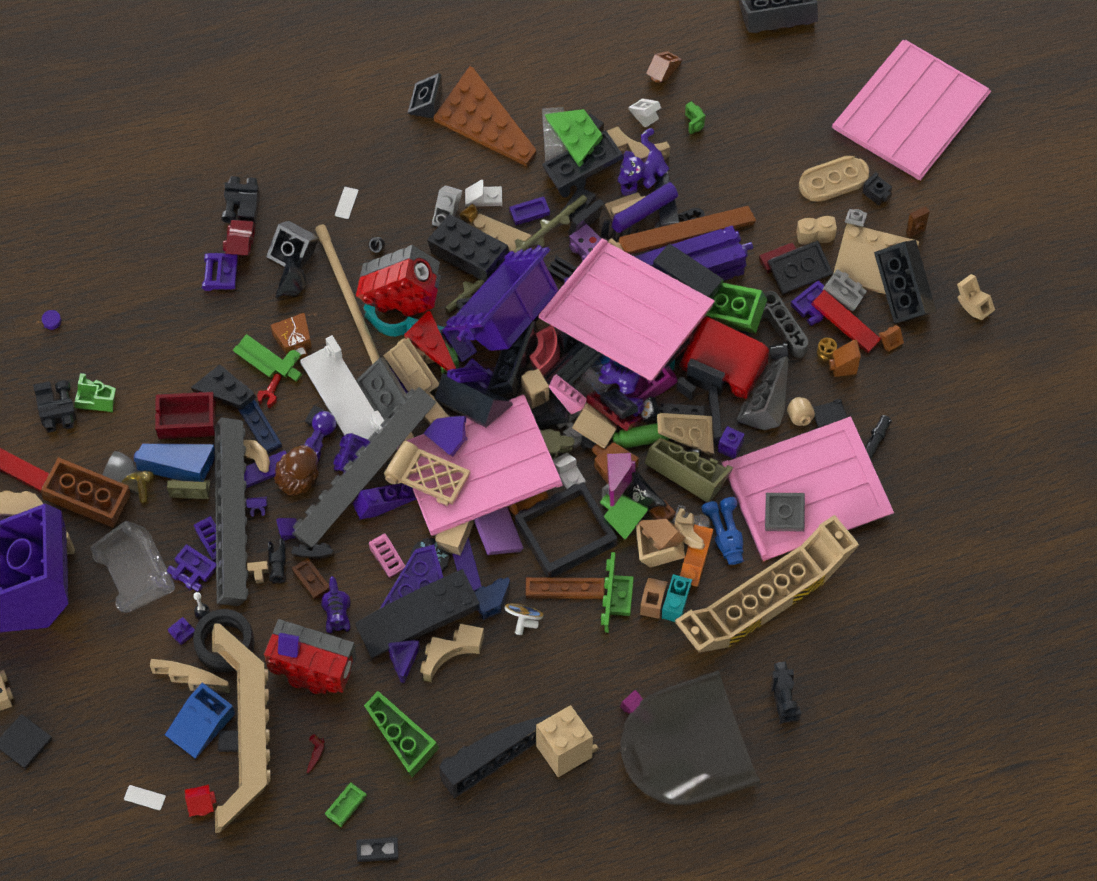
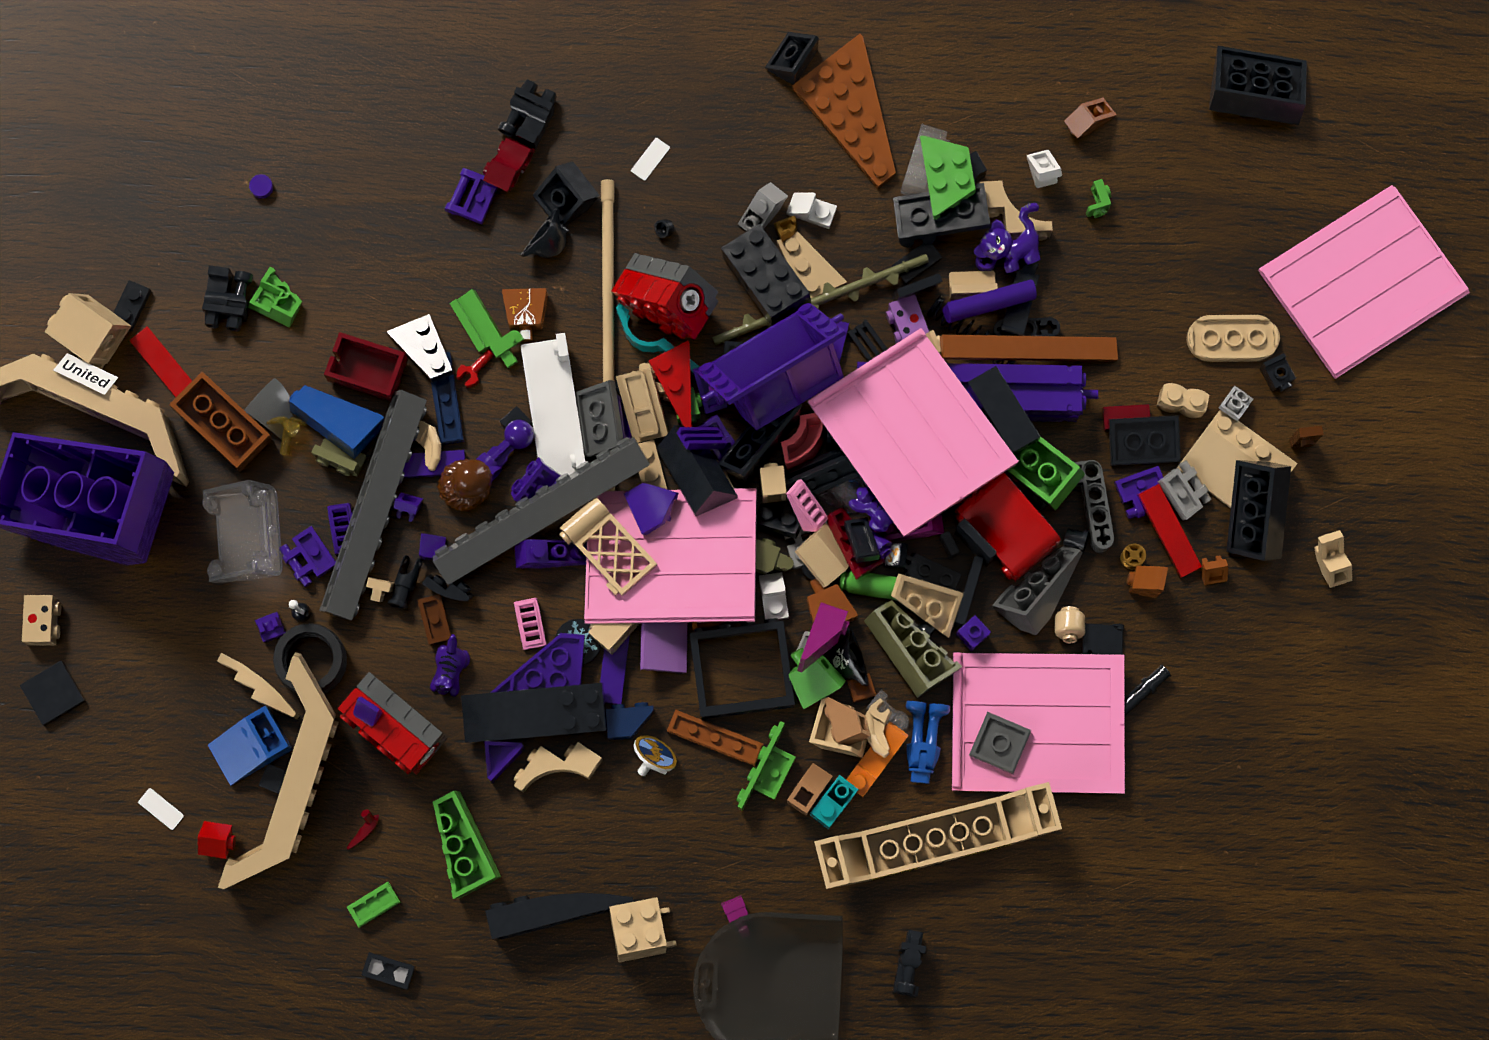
camera: 20 degrees right, 15 degrees up
(529, 210) = (857, 248): dark purple tile -> none

